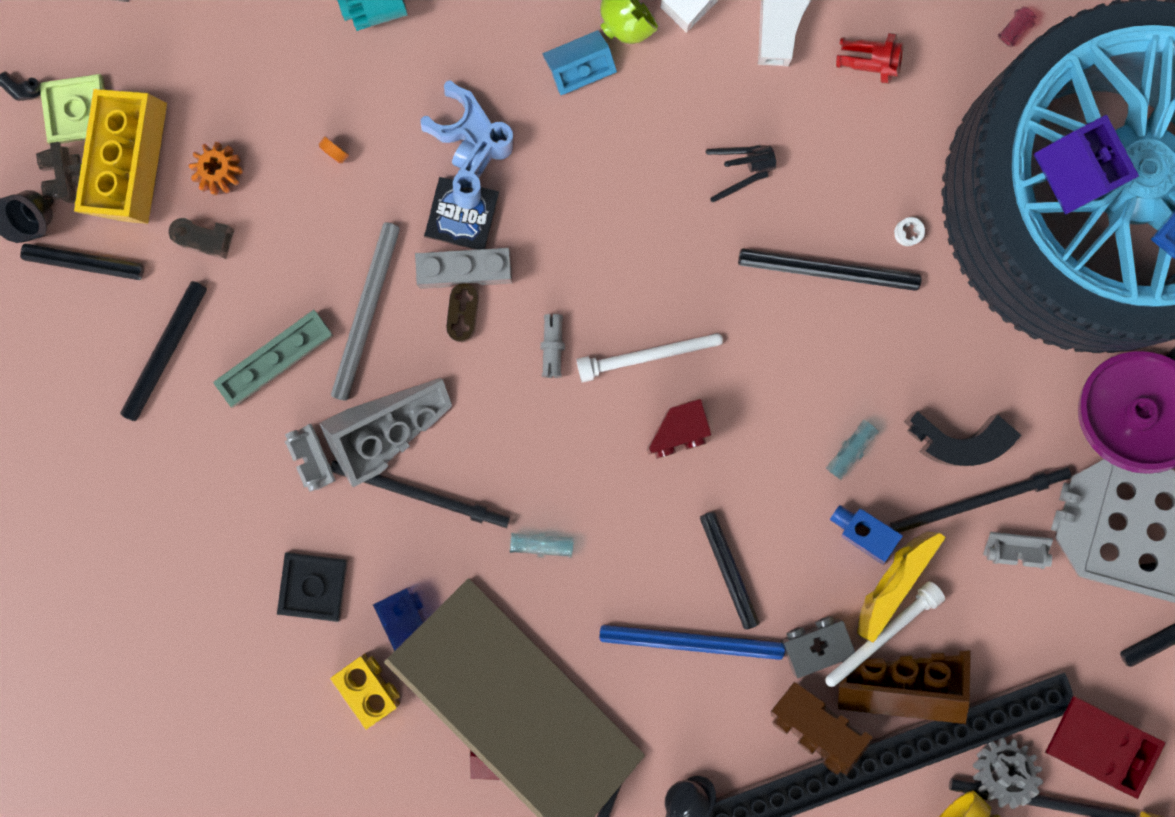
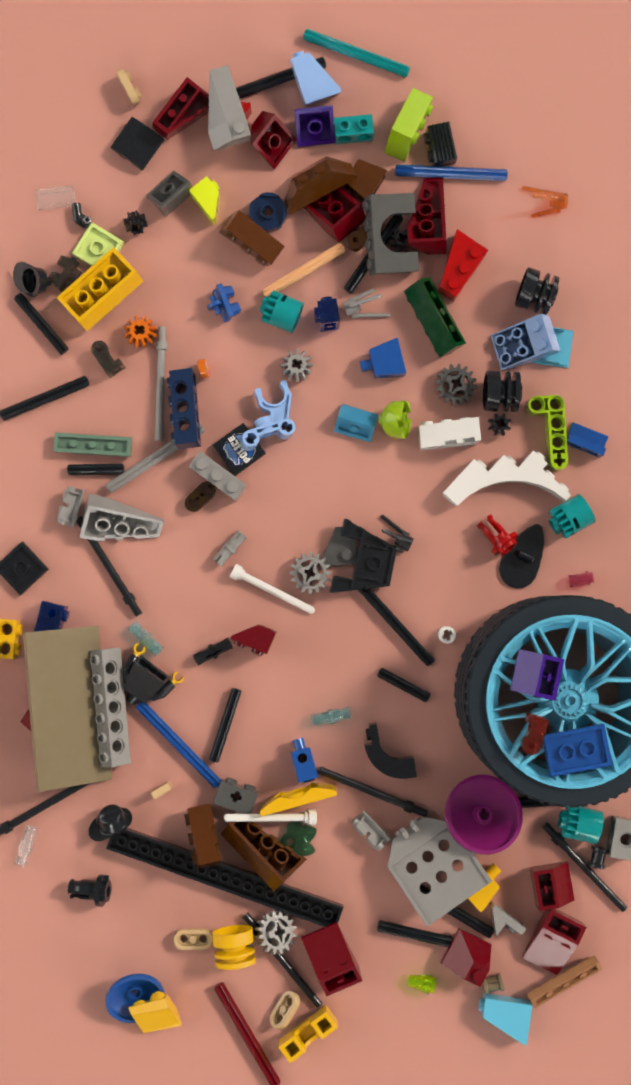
camera: 40 degrees right, 0 degrees up
(88, 40) = (135, 222): none -> black gear
(258, 167) = (161, 346): none -> light grey bar
(288, 50) = (221, 304): none -> blue hips
(302, 386) = (95, 469): none -> black axle
(320, 182) = (184, 379): none -> dark blue brick
(442, 41) = (288, 366): none -> light grey gear
(569, 666) = (110, 707): none -> light grey brick
(585, 595) = (145, 680): none -> black torso
(638, 491) = (212, 651): none -> black pin
(690, 231) = (340, 549): none -> dark grey wing
(693, 288) = (299, 568): none -> light grey gear
(718, 716) = (161, 790): none -> tan tile
(745, 216) = (372, 564): none -> black wing
(908, 337) = (403, 685): none -> black axle
(928, 66) = (522, 563): none -> black shield
(940, 630) = (302, 836): none -> clear green plate
(1143, 242) = (535, 733): none -> clear red leg

